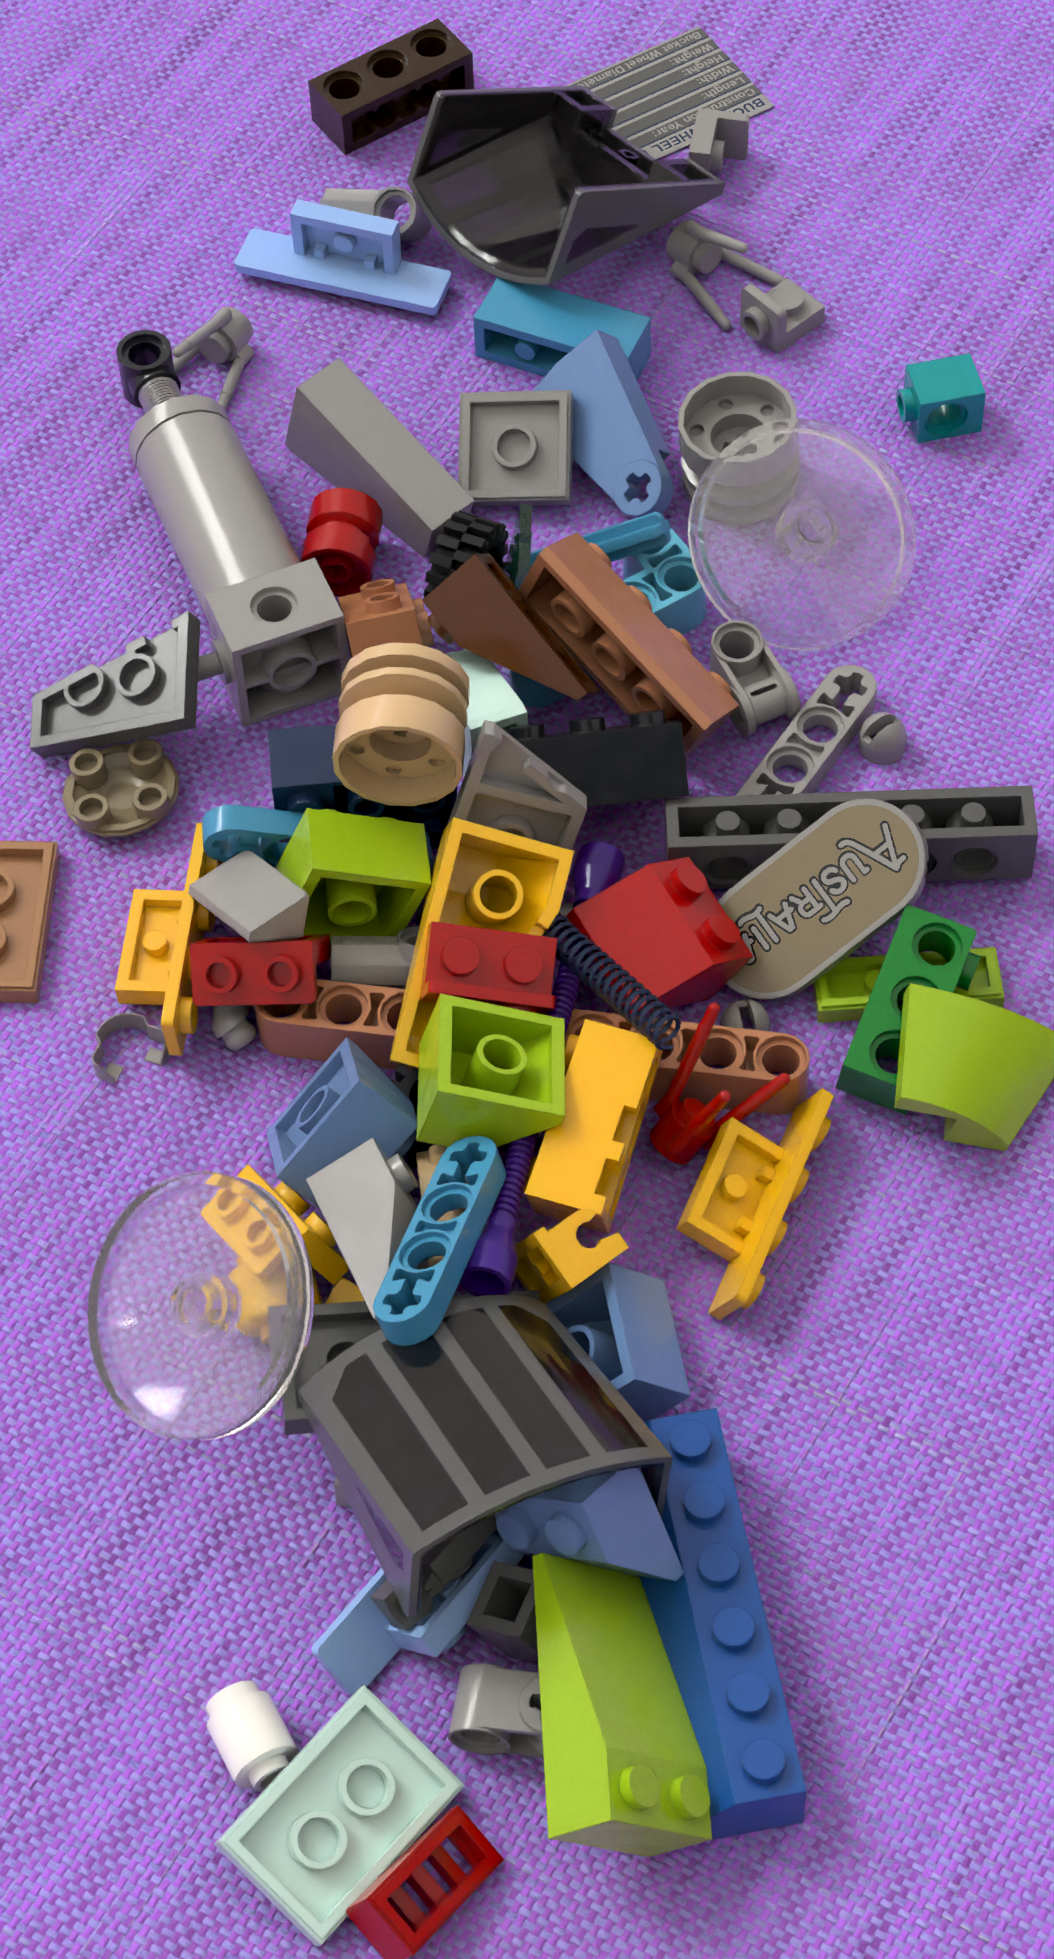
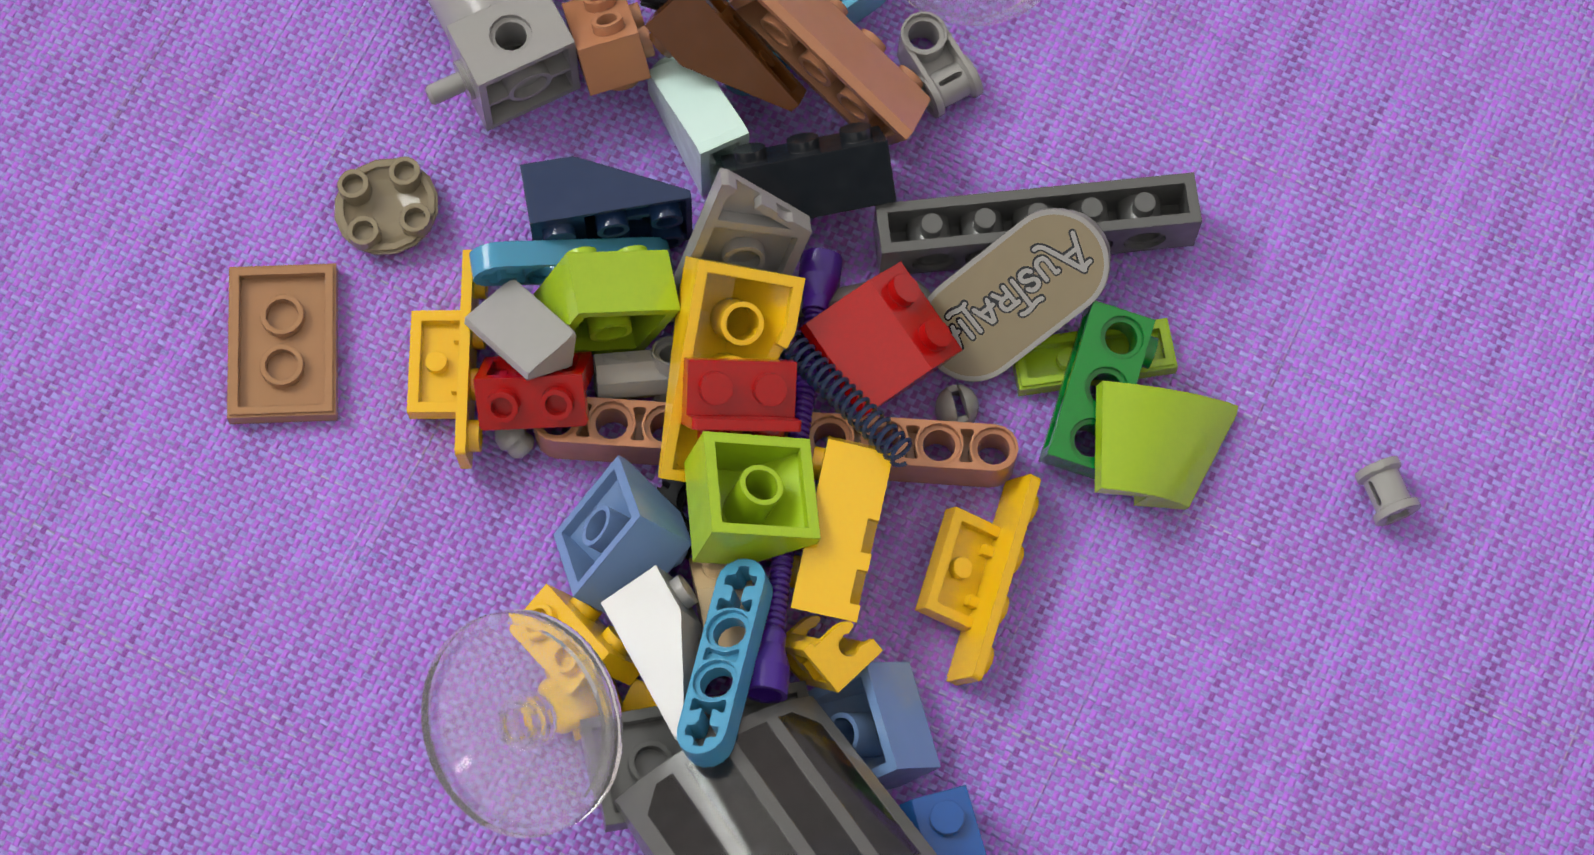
camera: 10 degrees left, 15 degrees up
(118, 1022) = (446, 465): light grey piece -> none
(127, 699) = (382, 121): wing -> none
(401, 724) = (644, 169): tan wheel -> none
(690, 1124) = (919, 510): red plant -> none
(811, 756) = (993, 135): light grey beam -> none
(889, 741) = (1062, 120): light grey hinge -> none

